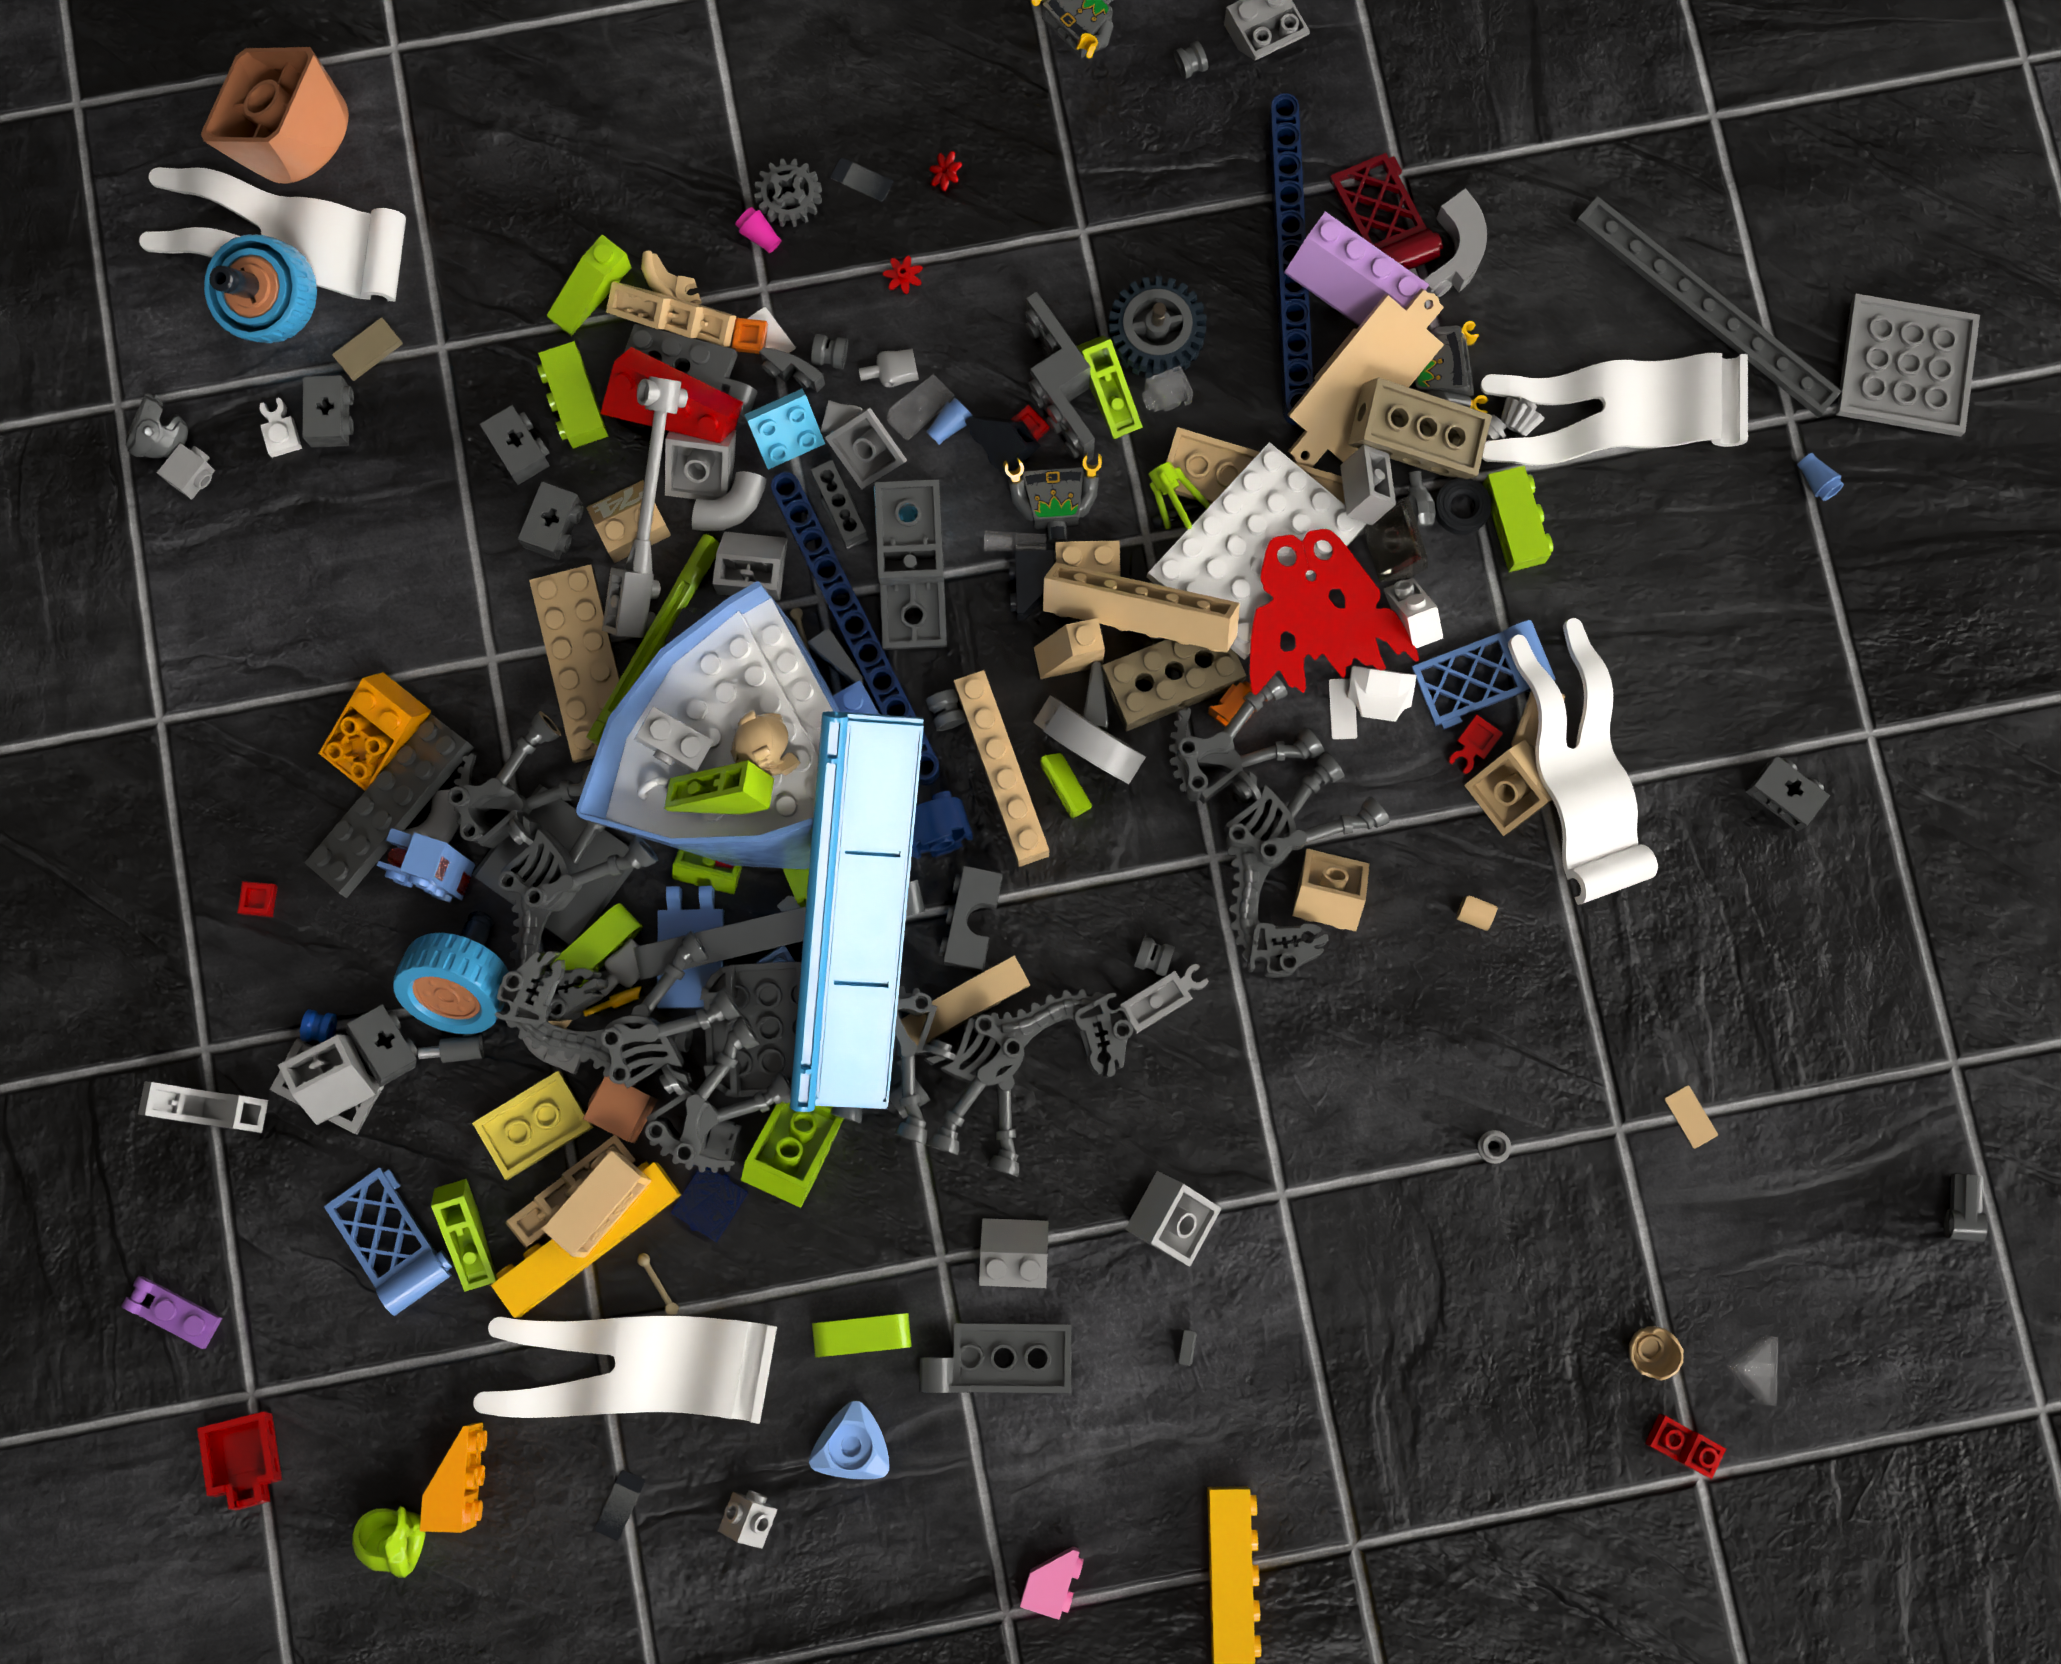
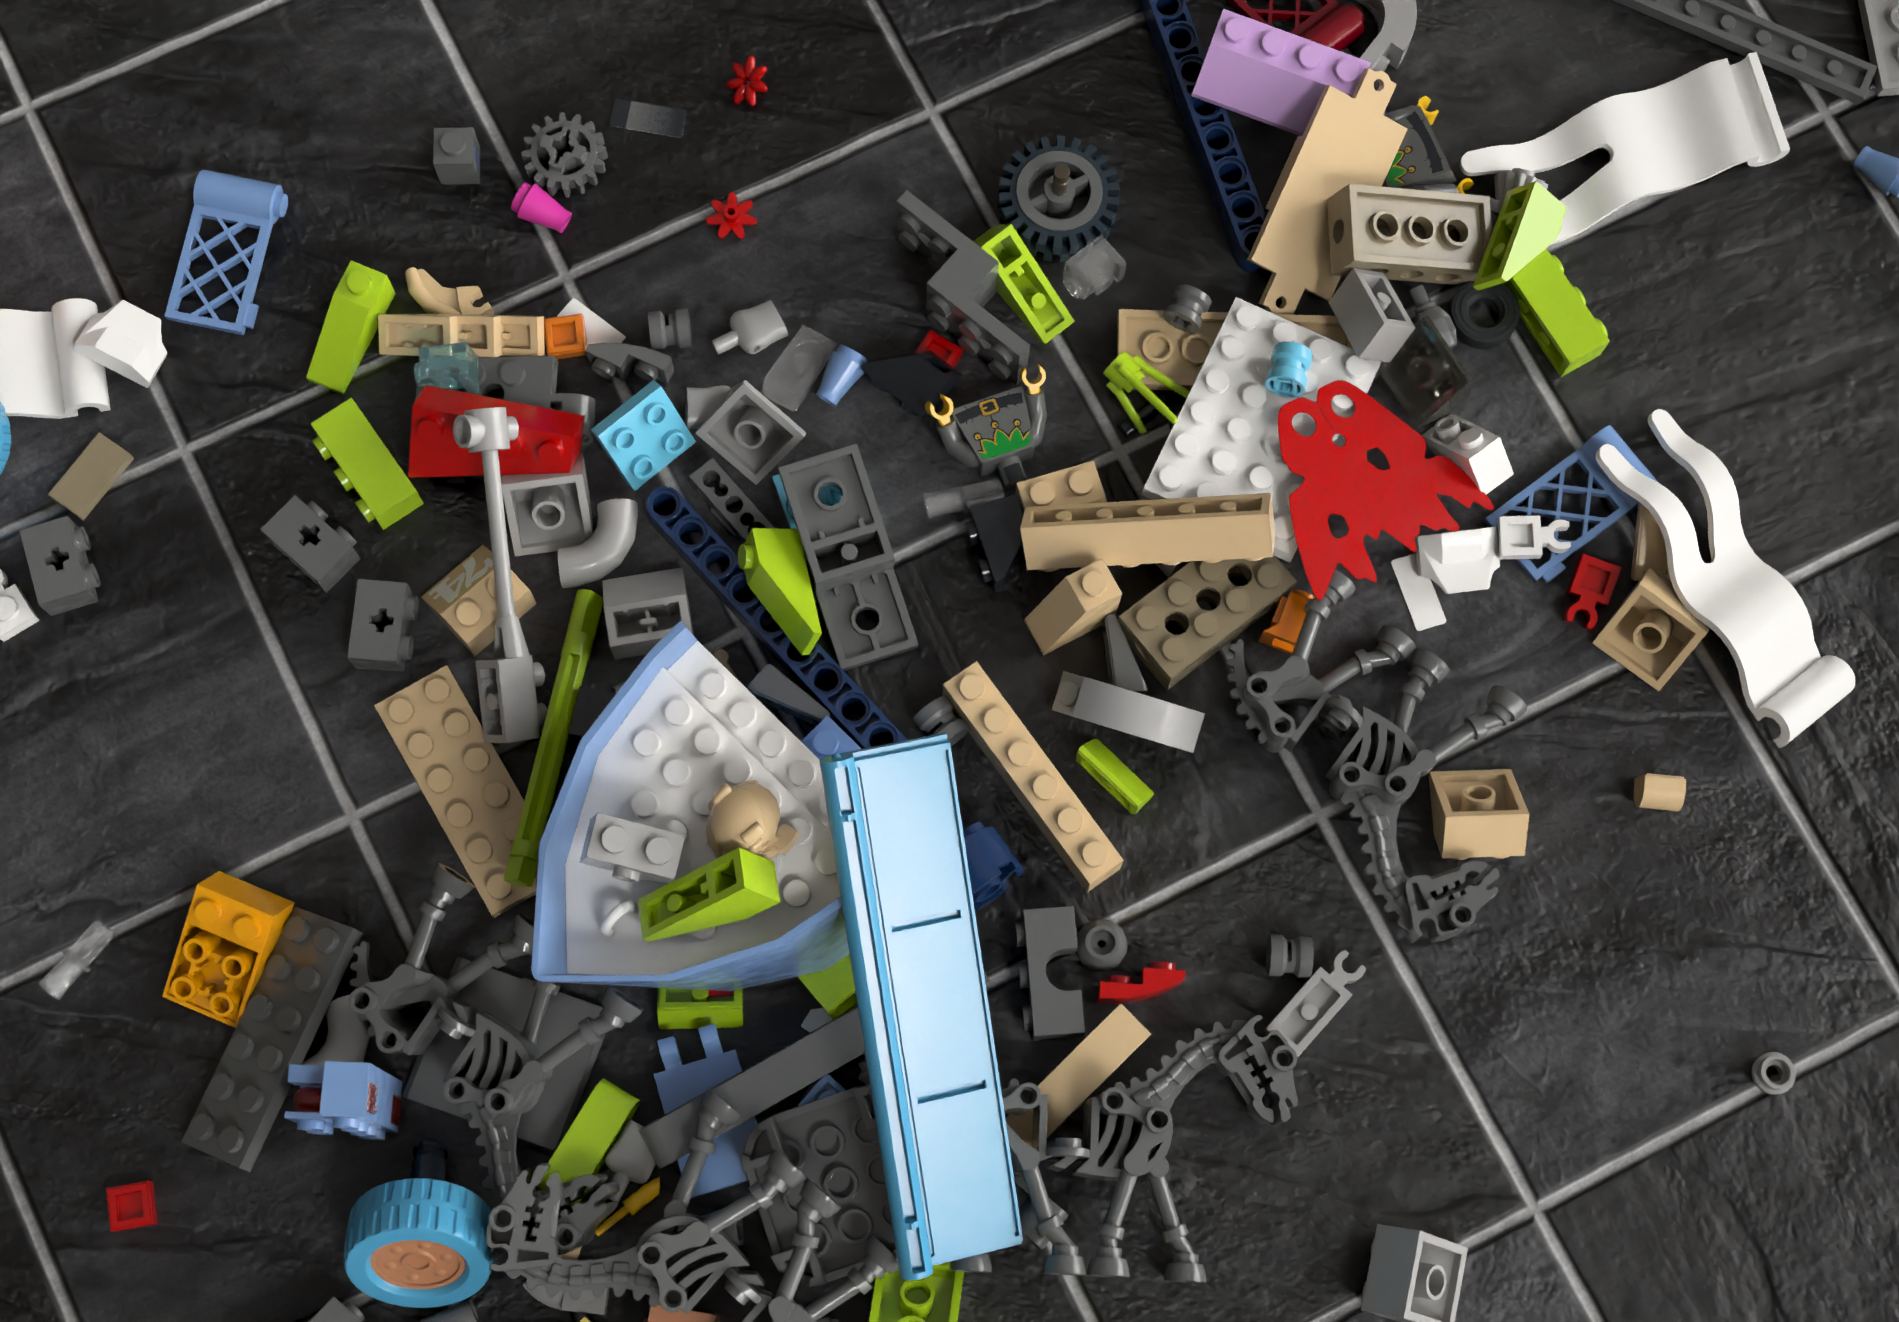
camera: 20 degrees left, 5 degrees down
(264, 709) = (77, 959): none -> clear axle
(418, 252) = (125, 342): none -> white slope
(533, 167) = (235, 202): none -> medium blue piece
(652, 338) = (448, 367): none -> clear light blue brick
(705, 172) = (456, 155): none -> dark grey brick
(853, 567) = (781, 582): none -> lime slope
(1020, 918) = (1101, 958): none -> dark grey plate
(1047, 946) = (1153, 982): none -> red slope
(1228, 441) = (1187, 308): none -> dark grey wheel
(1288, 510) = (1288, 374): none -> medium azure wheel
(1435, 688) = (1524, 537): none -> white plate
(1510, 448) = (1523, 229): none -> slope

